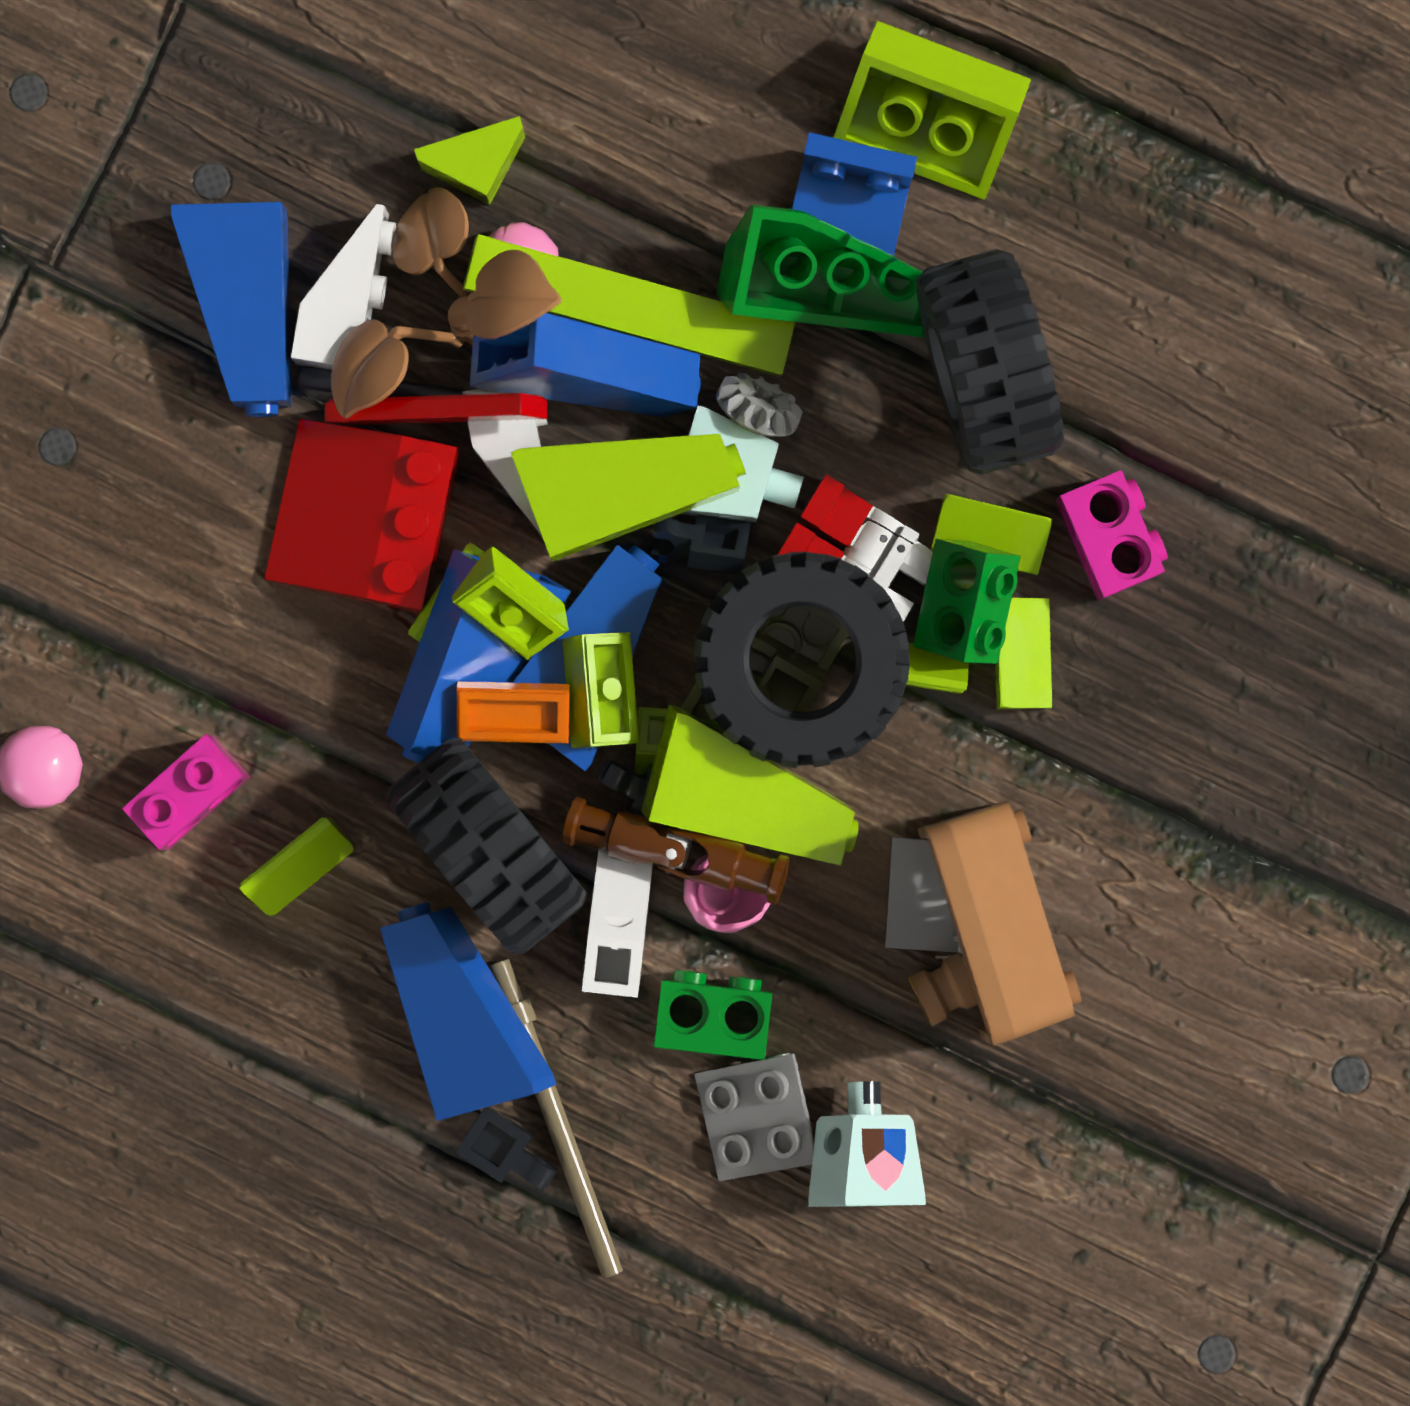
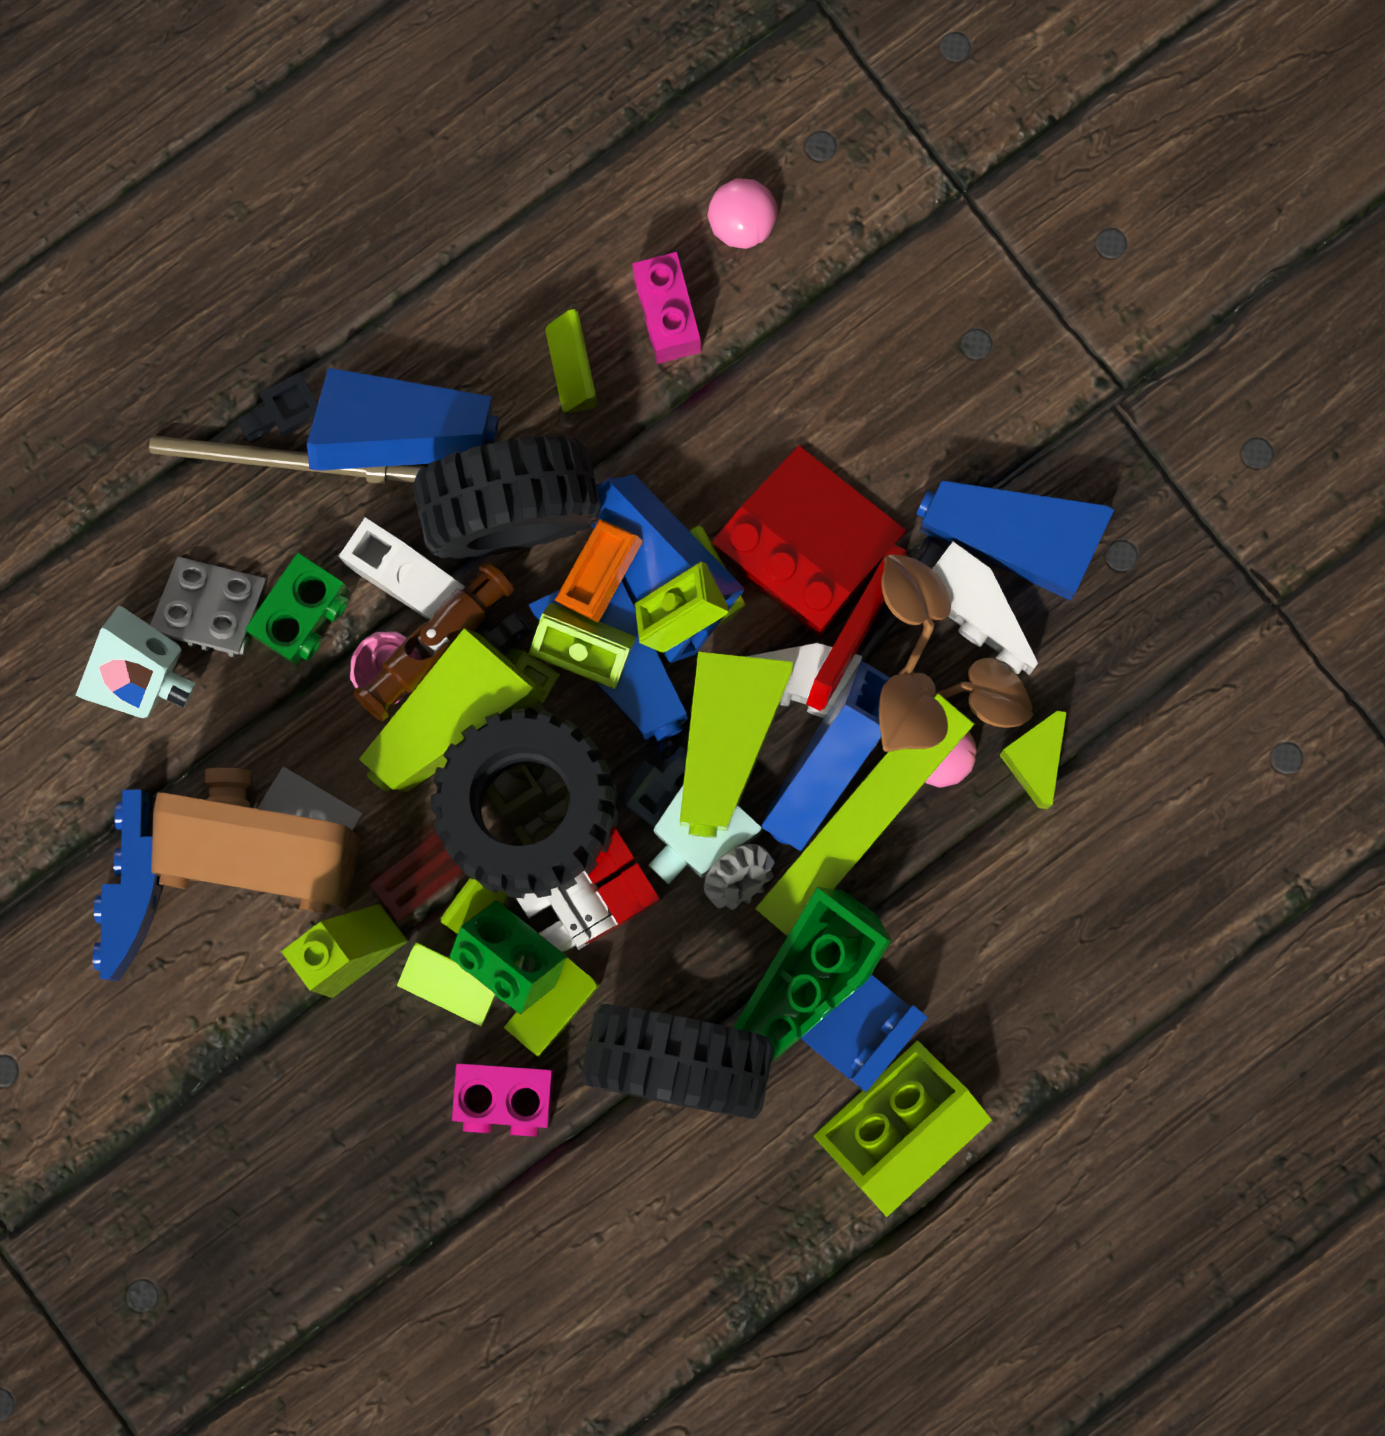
camera: 130 degrees right, 5 degrees down
(966, 761) = (403, 865): none -> clear red tile
(1049, 770) = (343, 949): none -> lime slope
(1115, 1029) = (127, 907): none -> blue slope

